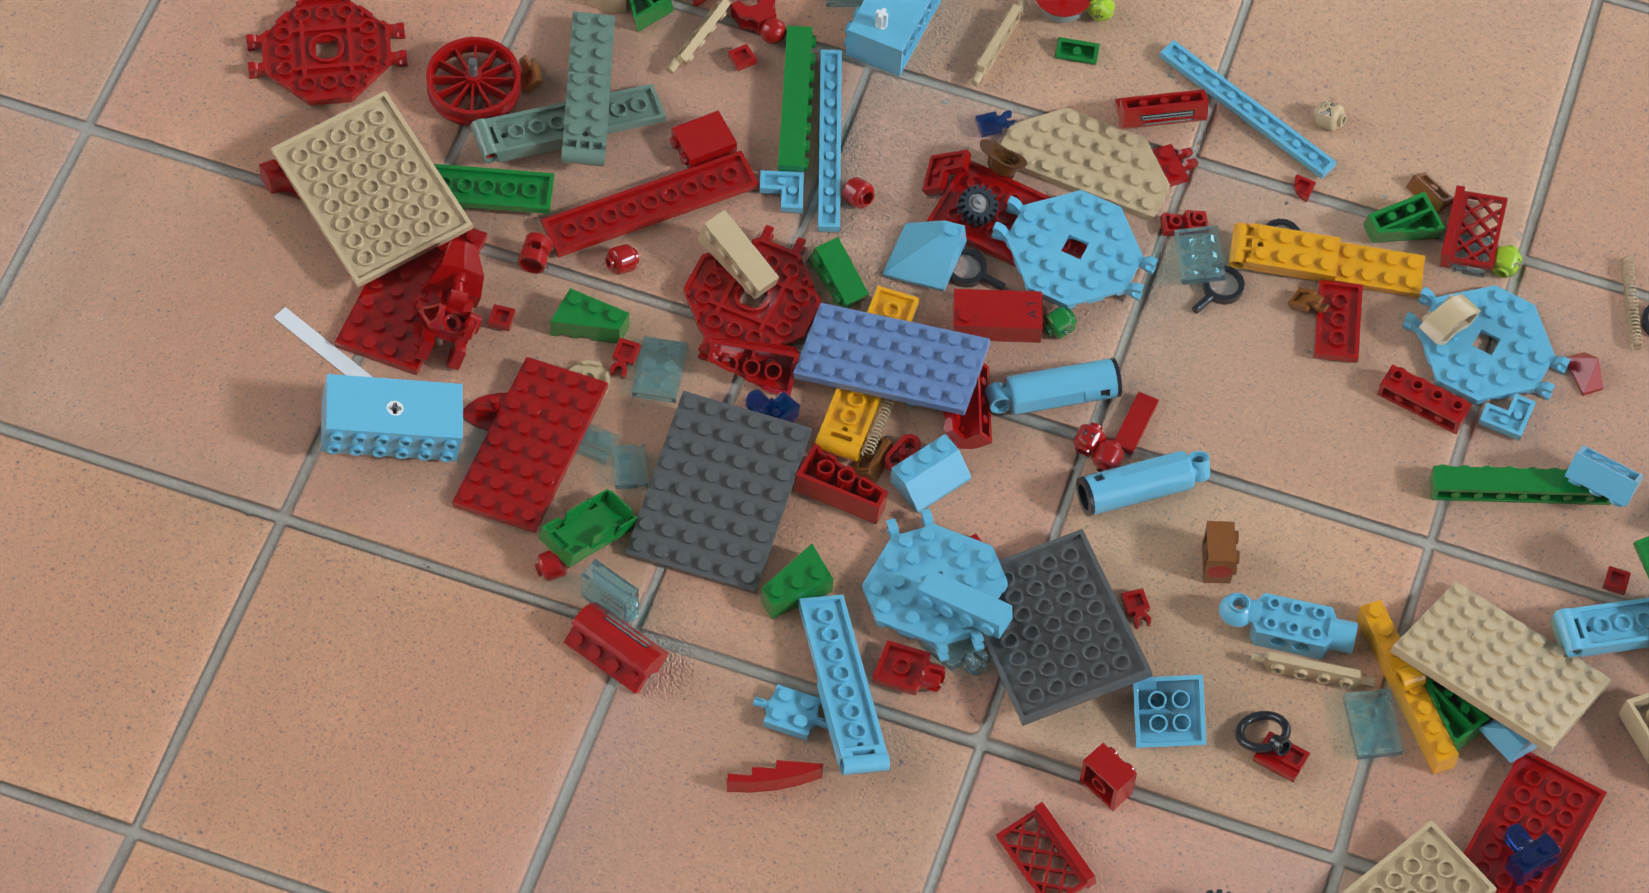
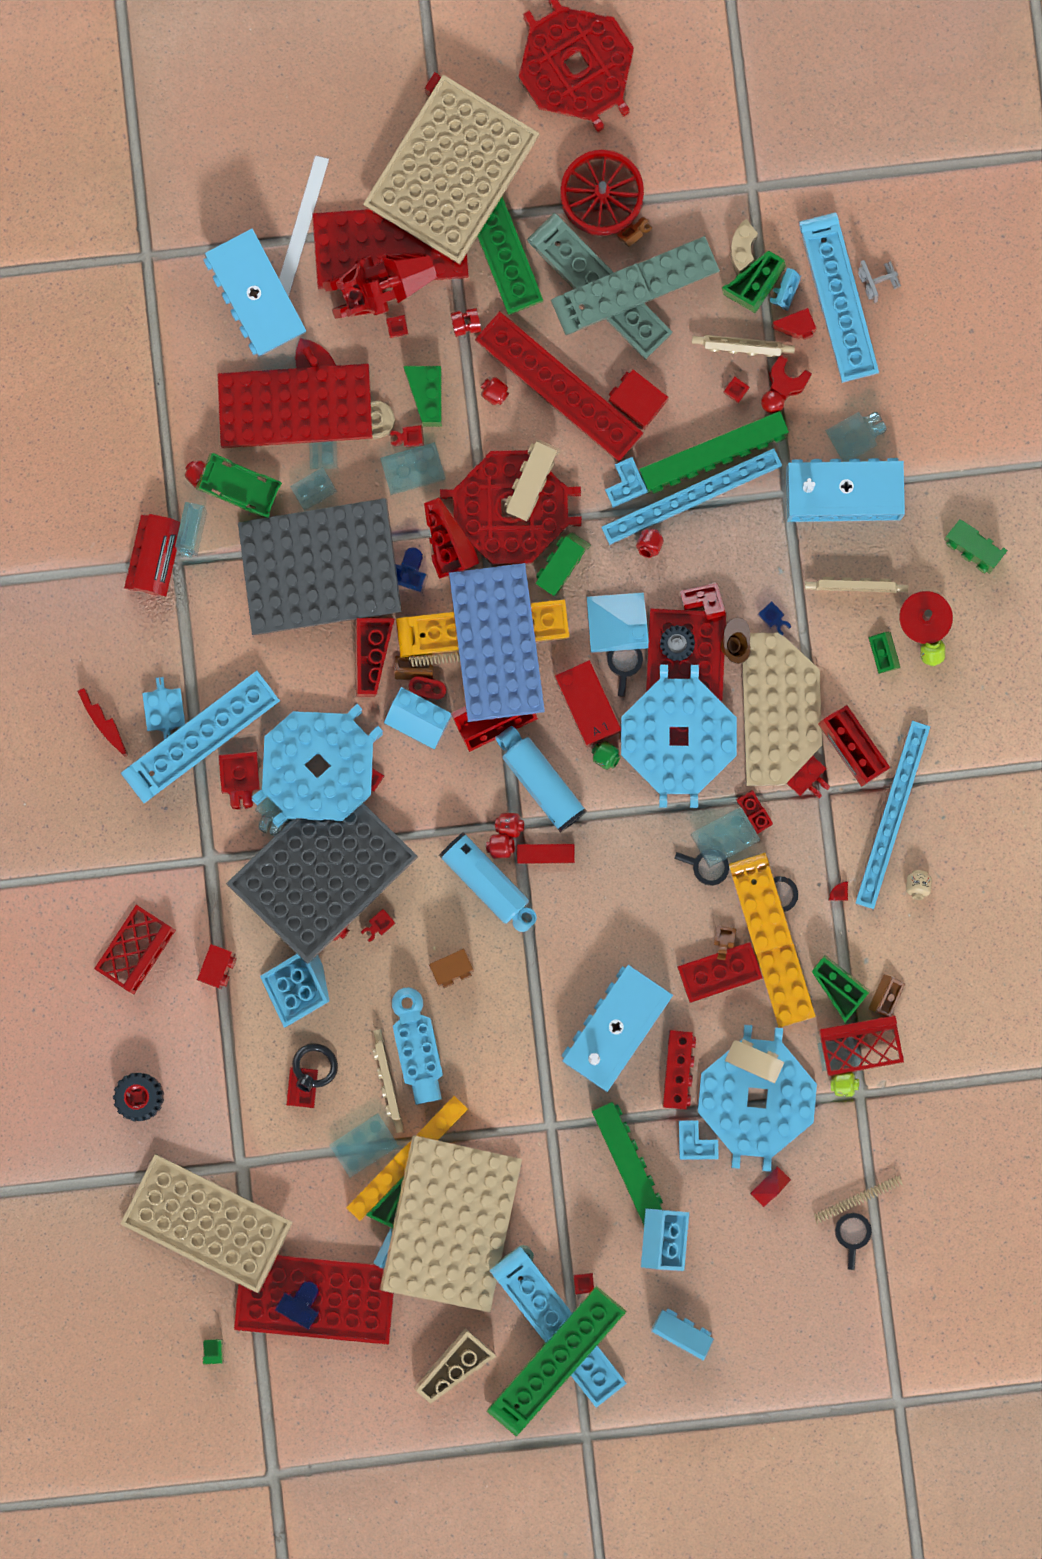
camera: 70 degrees right, 25 degrees up
(801, 578) = (272, 663): green wedge -> none
(965, 604) = (298, 797): medium azure brick -> none
(1356, 429) = (632, 1003): none -> medium azure piece

